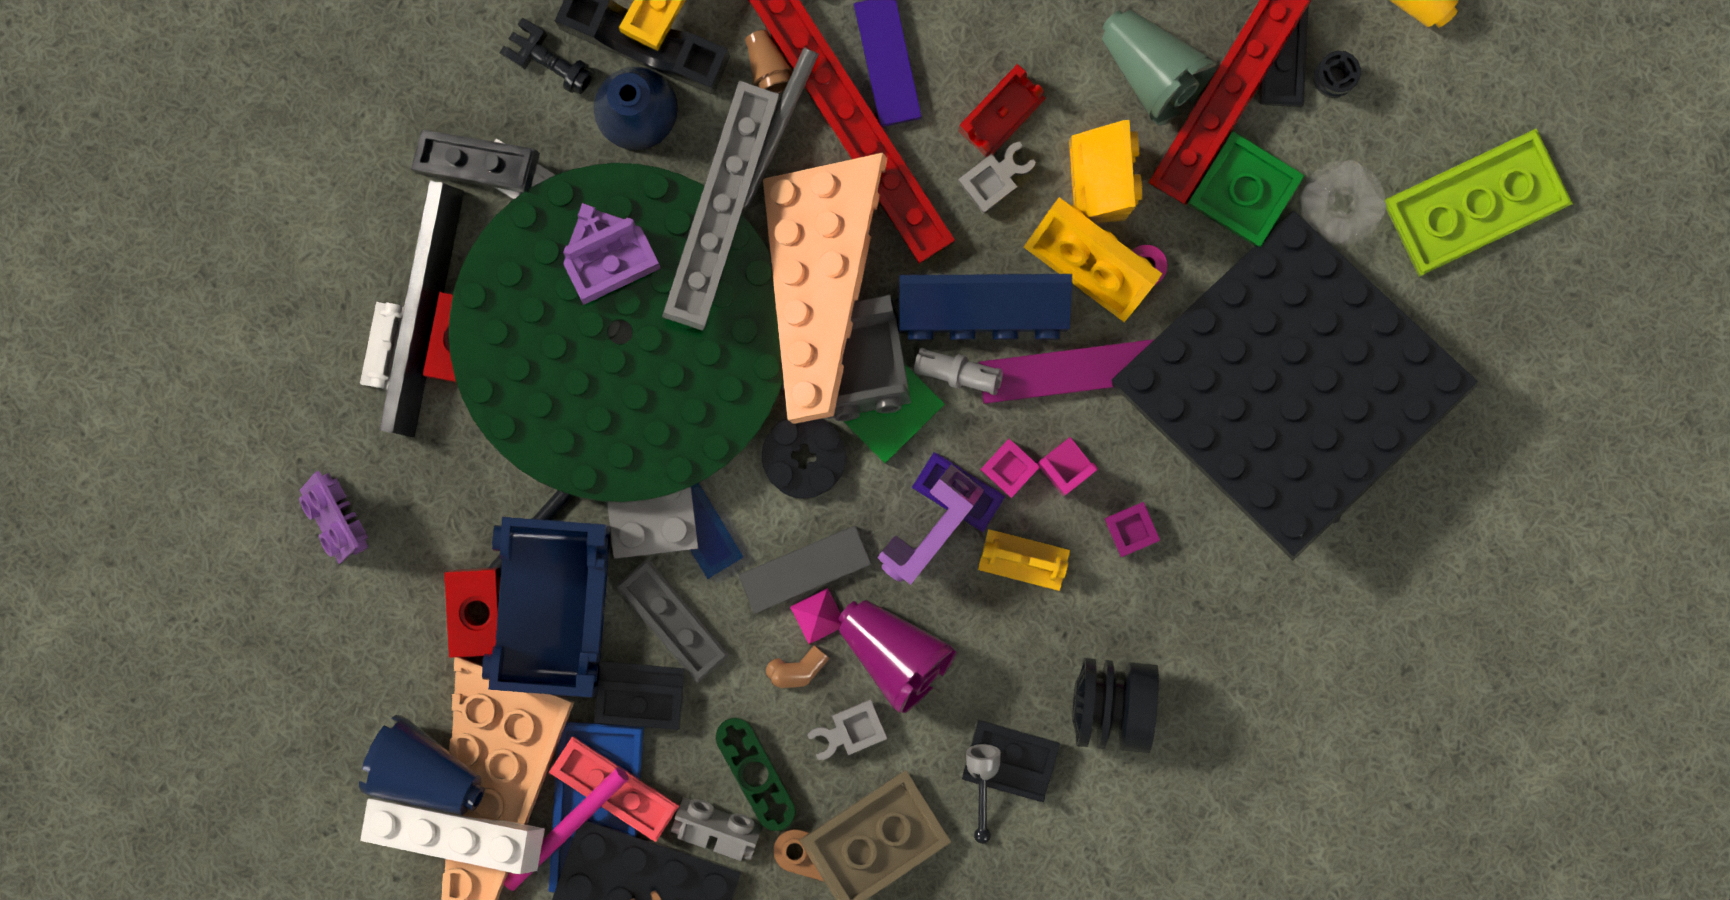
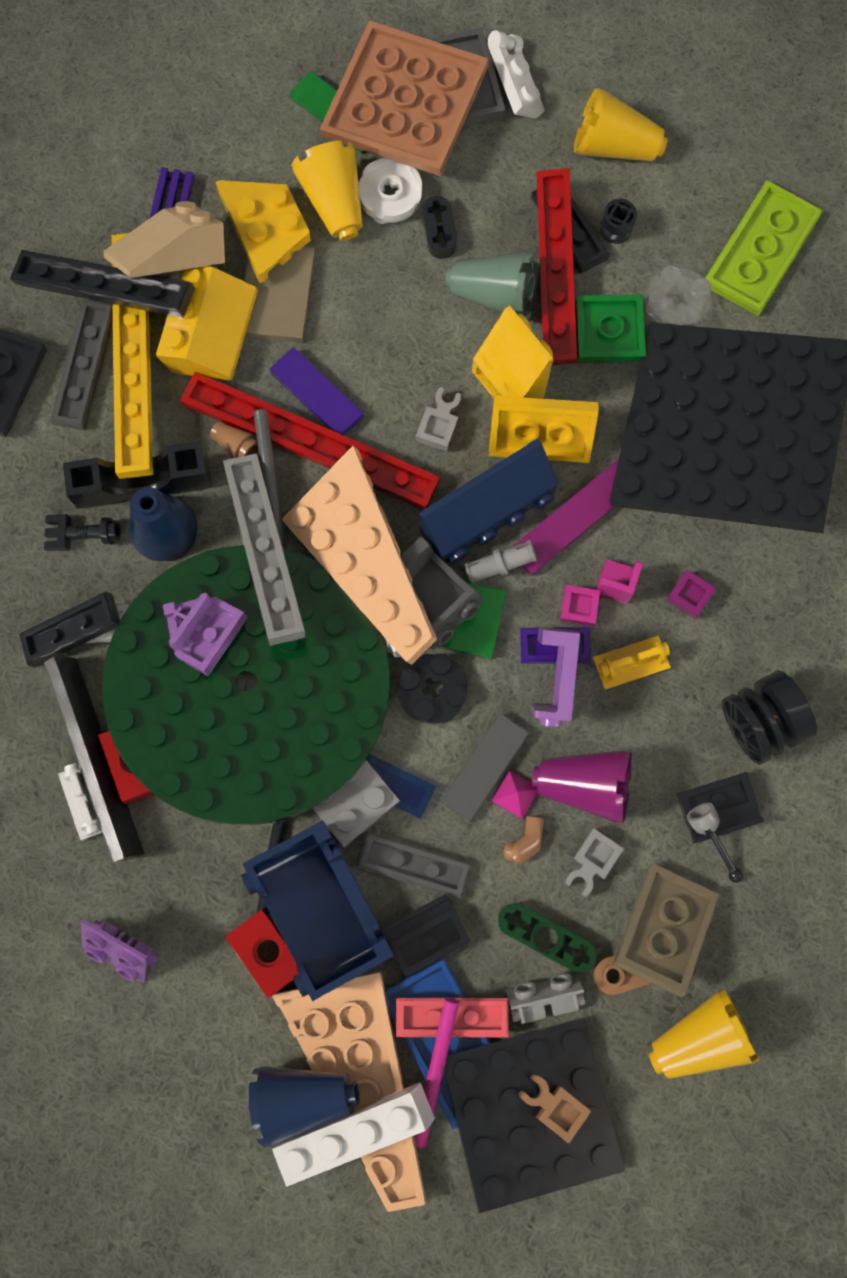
camera: 35 degrees left, 10 degrees down
(1002, 112) = (415, 376): red hinge -> none

